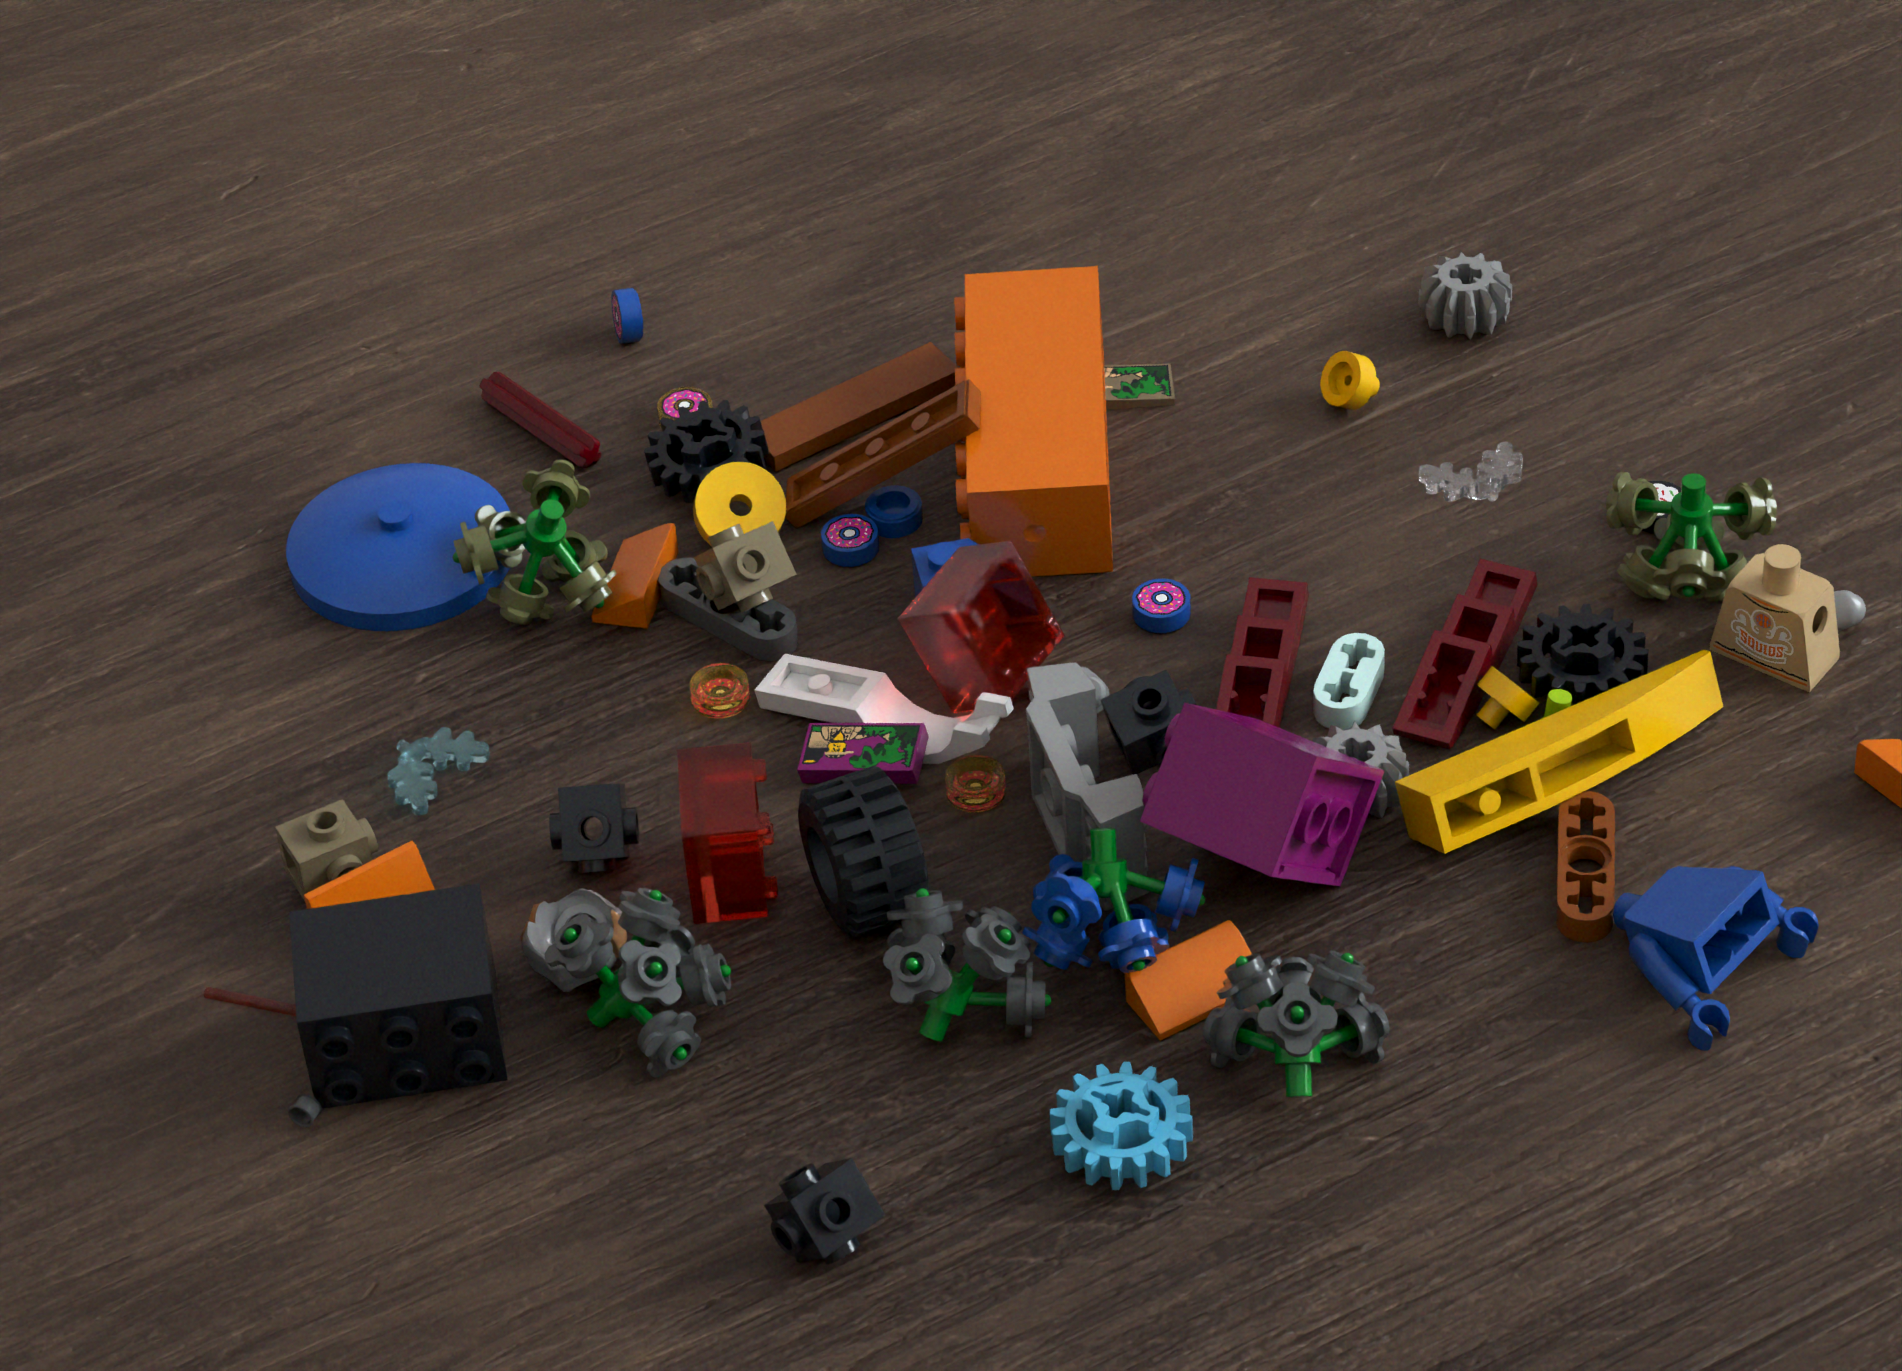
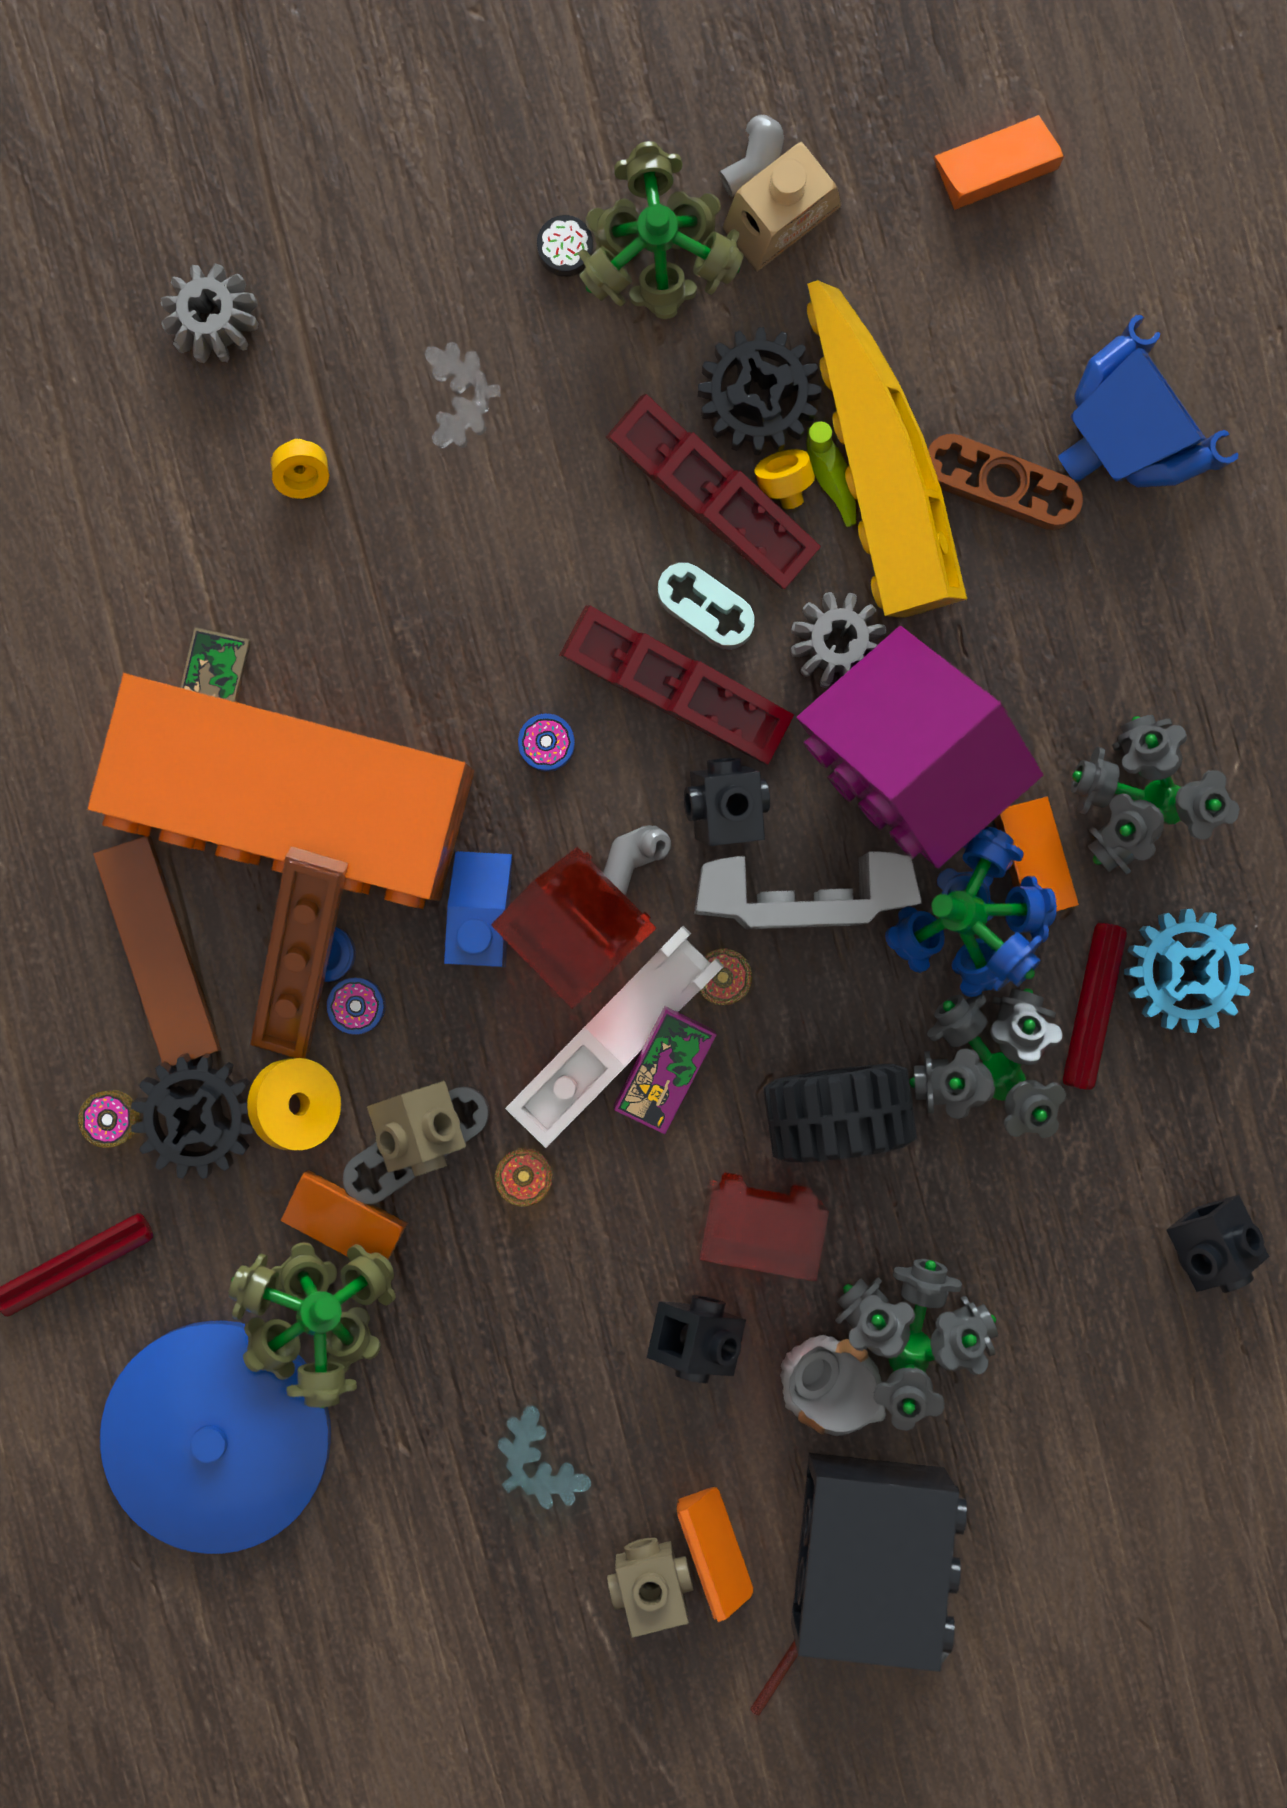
camera: 75 degrees left, 45 degrees up
(1043, 1068) = (1094, 1006): none -> dark red axle

